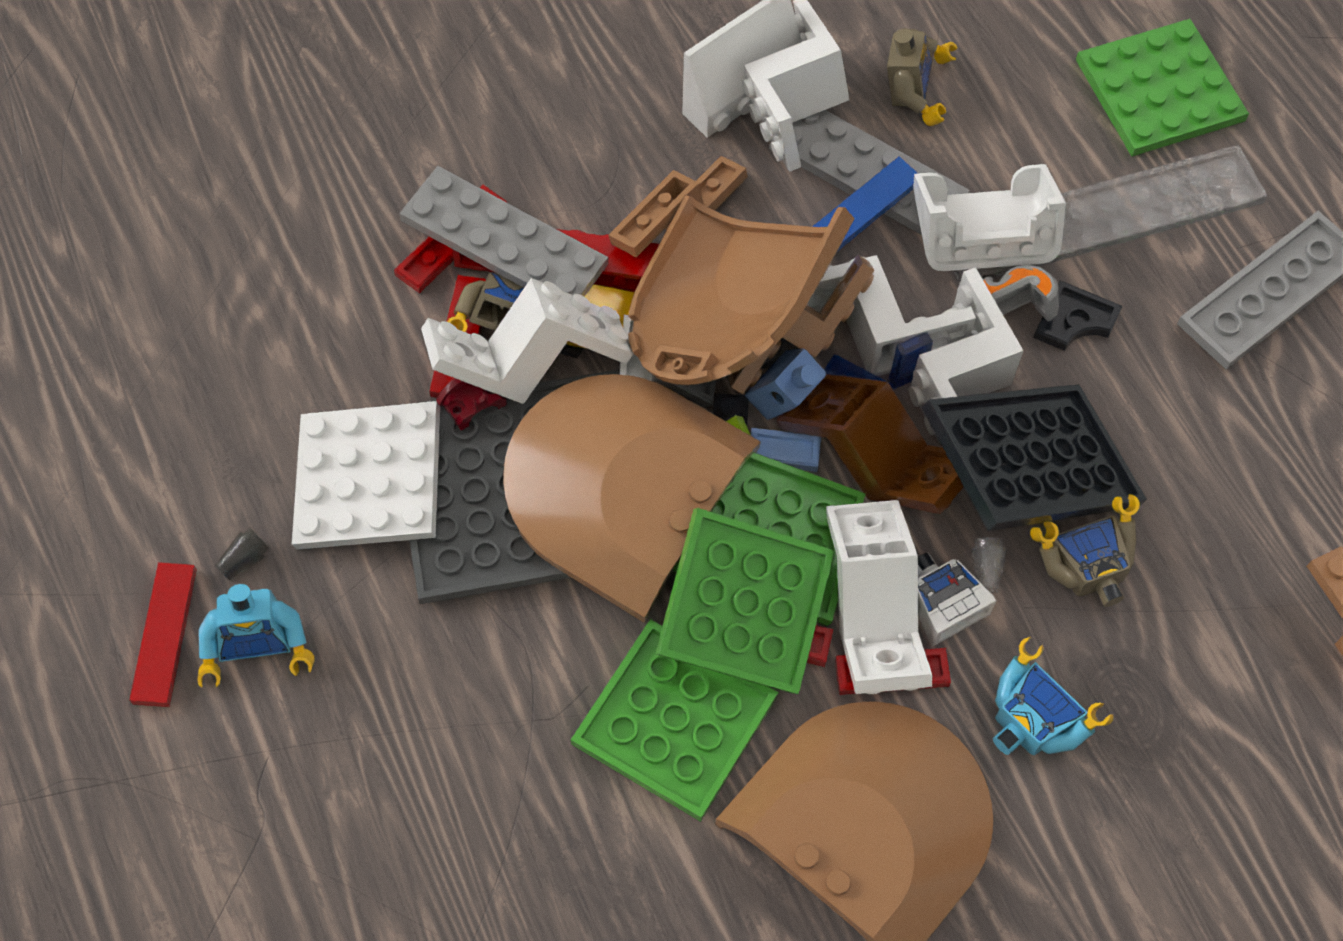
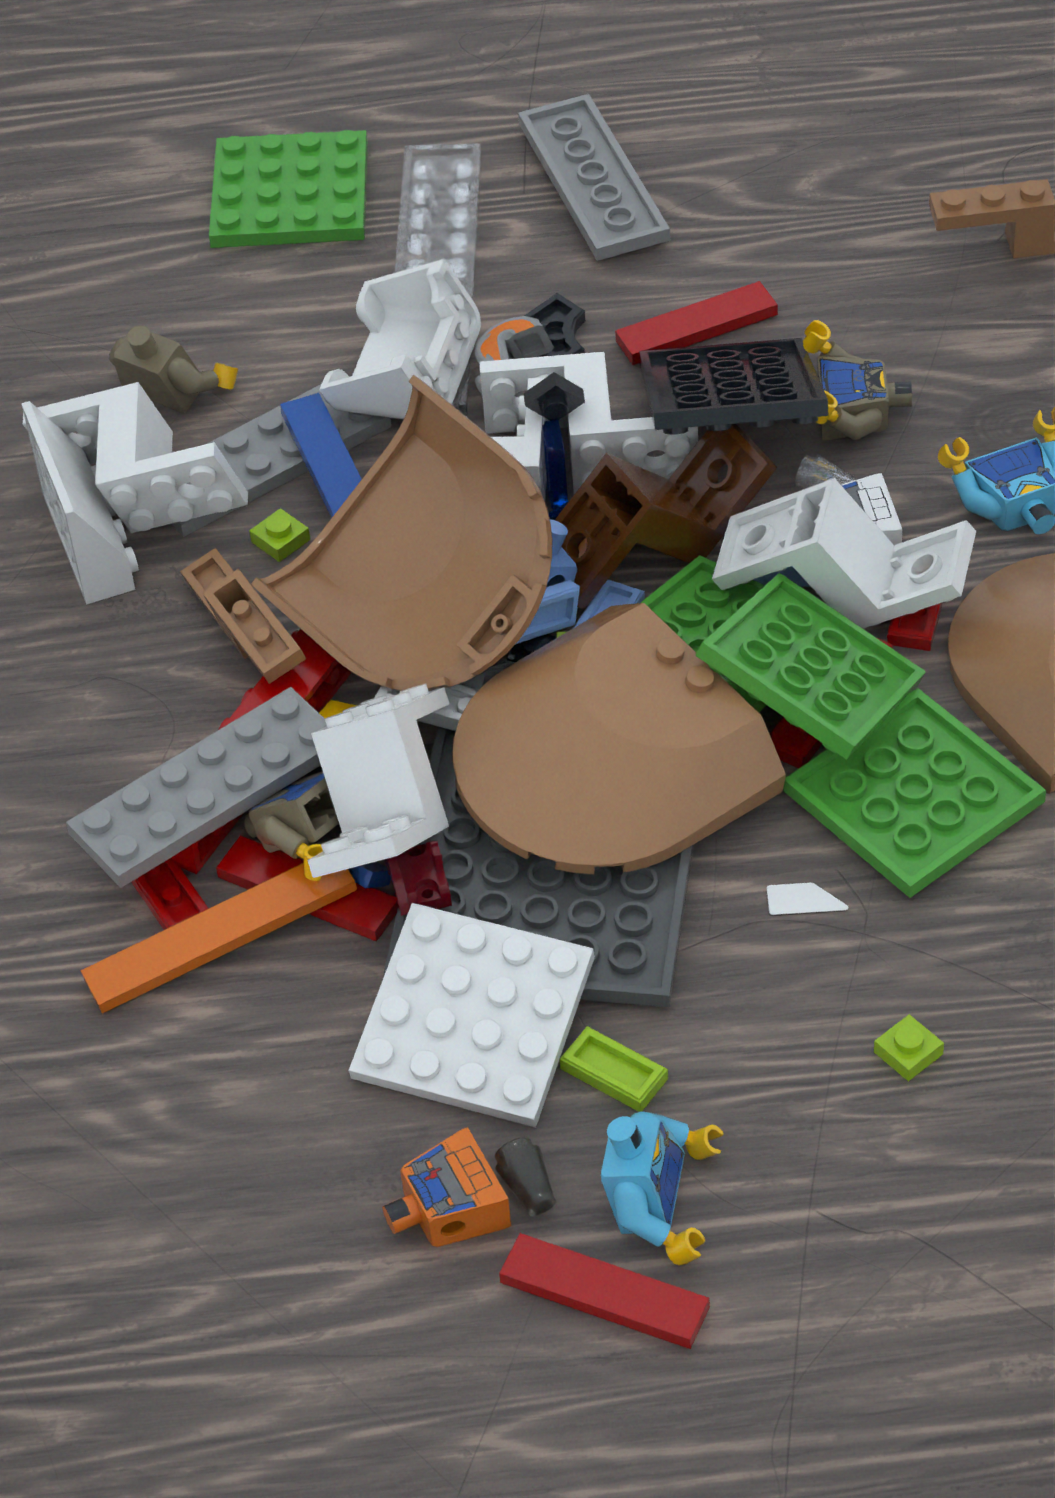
camera: 65 degrees left, 15 degrees down
(215, 510) = (450, 1193): none -> orange torso
(355, 583) = (613, 1069): none -> lime tile
(384, 281) = (211, 934): none -> orange tile
(426, 780) = (908, 1047): none -> lime plate
(552, 667) = (801, 899): none -> white sticker
(750, 398) = (555, 612): none -> light blue tile
(788, 206) = (279, 535): none -> lime plate
(942, 329) = (554, 397): none -> black plate
(1137, 418) = (698, 321): none -> red tile

